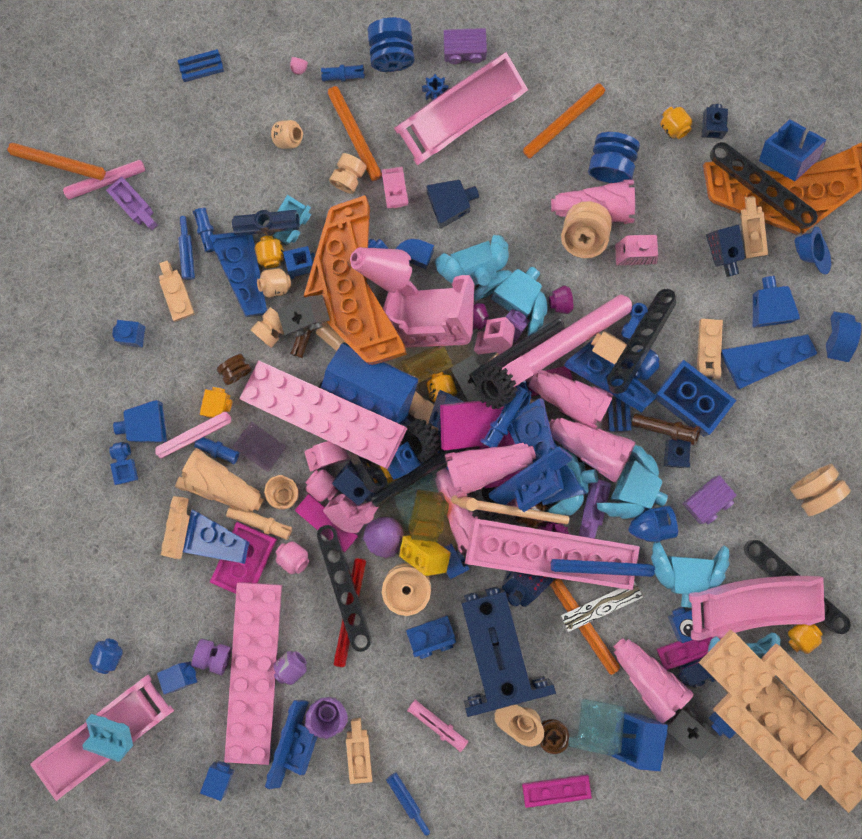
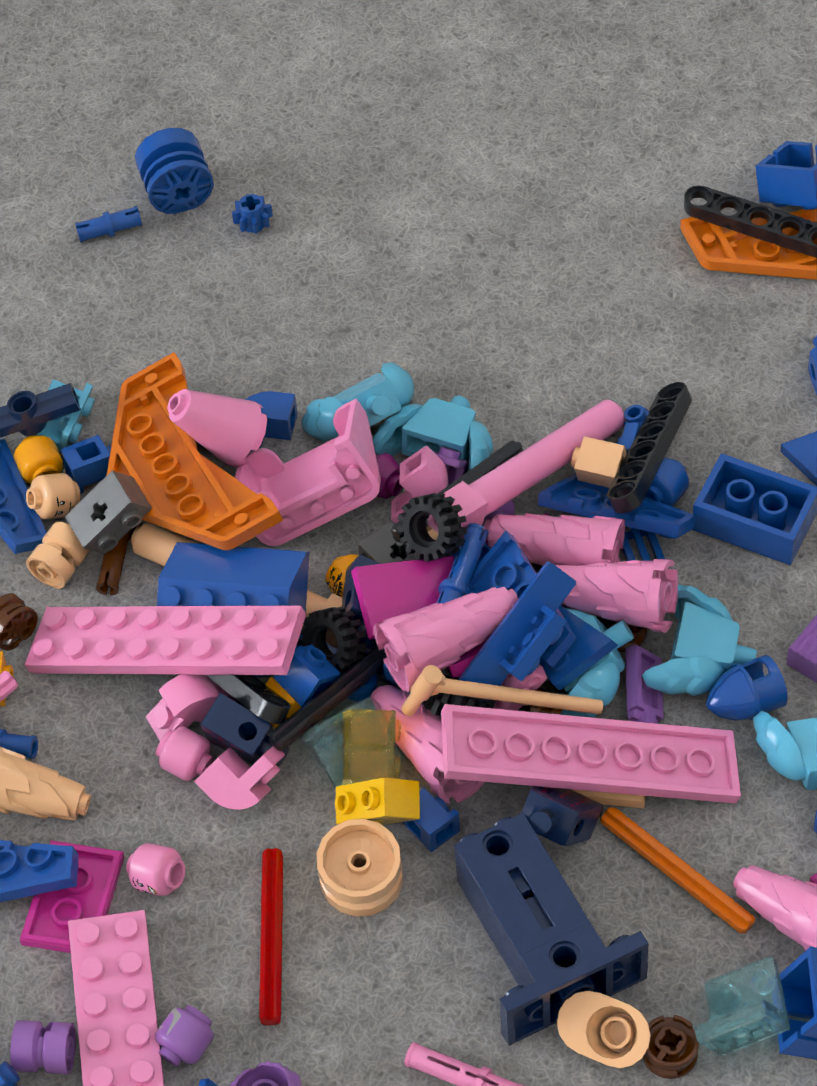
camera: 10 degrees left, 30 degrees down
(259, 446) = (70, 724): clear purple plate -> none
(265, 524) = (92, 832): light nougat pin -> none
(281, 492) = (112, 769): light nougat hair -> none
(286, 134) = (38, 308): light nougat head -> none
(298, 65) = (39, 227): bright pink hinge -> none
(313, 513) = (200, 813): dark pink tile -> none
(347, 173) = (141, 337): light nougat wheel -> none
(347, 586) = (257, 887): black beam -> none
(354, 133) = (142, 292): orange axle -> none
(383, 536) = (304, 807): medium lavender hair -> none
(394, 187) = (218, 341): bright pink brick -> none
(431, 636) = (420, 941): blue bracket -> none
(434, 358) = (326, 543): clear yellow piece -> none
(450, 200) = (307, 341): dark blue torso -> none
(462, 107) = (297, 221): bright pink windscreen -> none
(465, 45) = (284, 156): medium lavender brick -> none
(562, 300) = (512, 426): magenta cone -> none
(564, 120) = (455, 217): orange axle -> none
(586, 229) = (521, 345): light nougat wheel -> none
(598, 567) = (677, 759): blue axle -> none
(600, 607) = (695, 833): sticker -> none
(613, 157) = (541, 236): blue wheel -> none
(614, 197) = (547, 292): bright pink cone -> none
(638, 250) = (610, 340): bright pink torso -> none
(672, 459) = (755, 591): dark blue brick -> none
(675, 430) = (738, 551): reddish brown pin -> none
(676, 122) = (623, 182): light orange head -> none
(710, 347) = (761, 439): light nougat plate -> none
(715, 128) = (678, 166): dark blue brick -> none
(726, 248) = (744, 309): dark blue torso -> none
(753, 229) = (779, 283): light nougat hinge -> none

